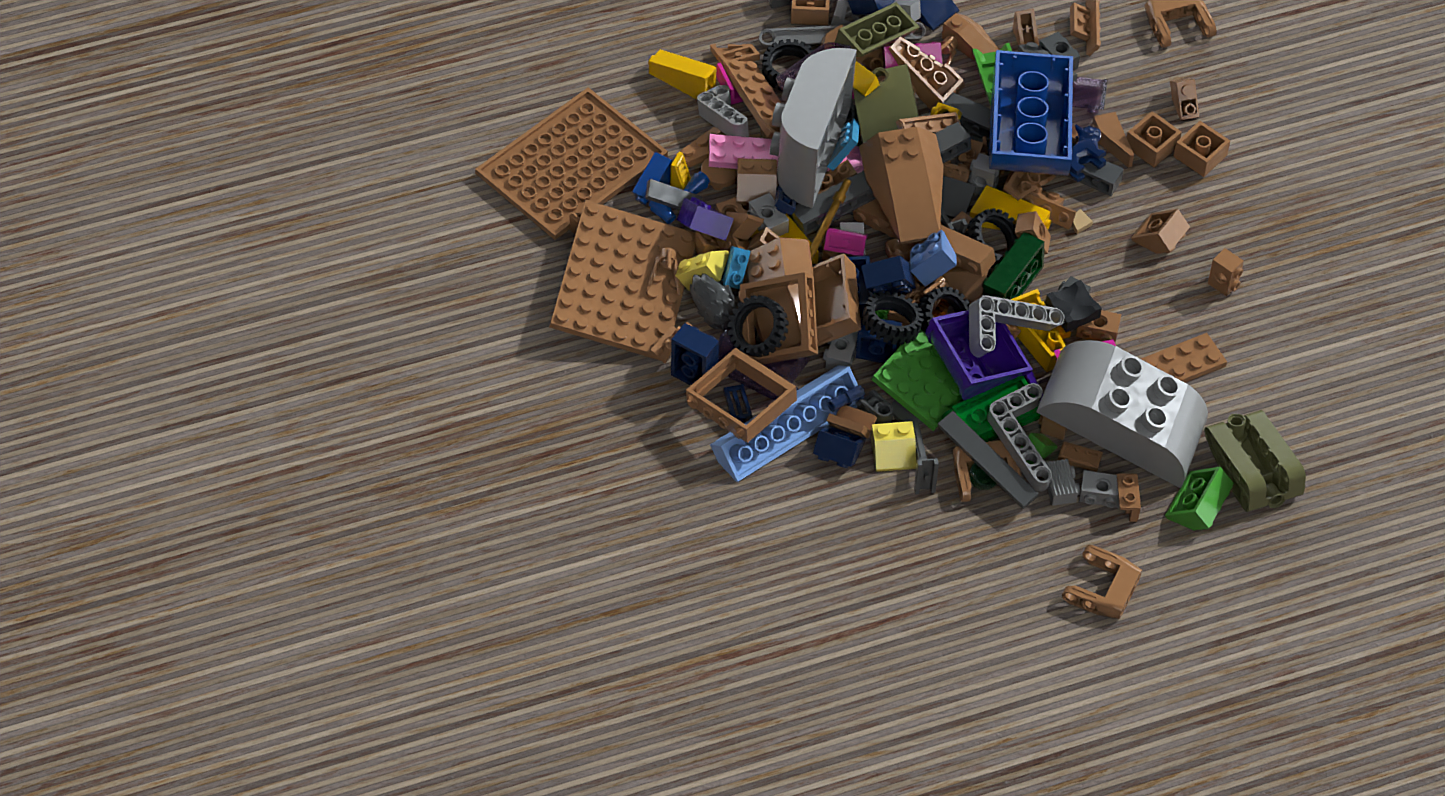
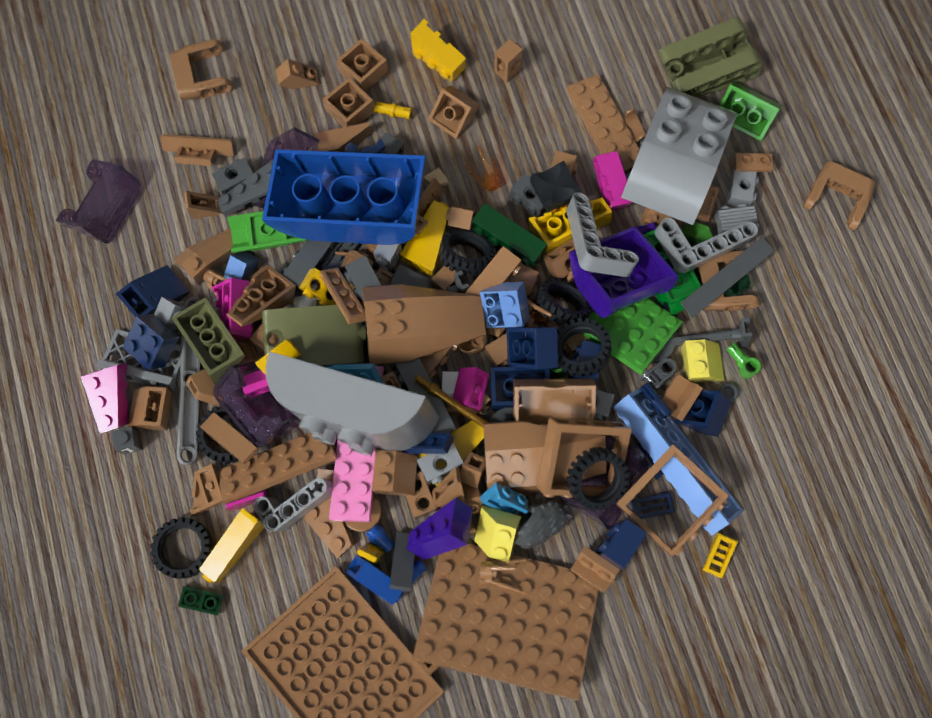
camera: 85 degrees left, 20 degrees up
(632, 58) = (200, 600): none -> dark green slope
(681, 24) = (159, 540): none -> black tyre
(705, 458) = (726, 558): none -> yellow slope
(783, 59) = (229, 438): none -> medium nougat slope
(862, 472) = (729, 391): none -> dark grey tile
(896, 482) = (743, 360): none -> bright green pin
(963, 64) = (241, 265): none -> medium blue slope
(1082, 265) = (491, 180): none -> clear orange plant
(1156, 181) = (393, 110): none -> yellow pin
(1229, 211) = (436, 53): none -> yellow wedge

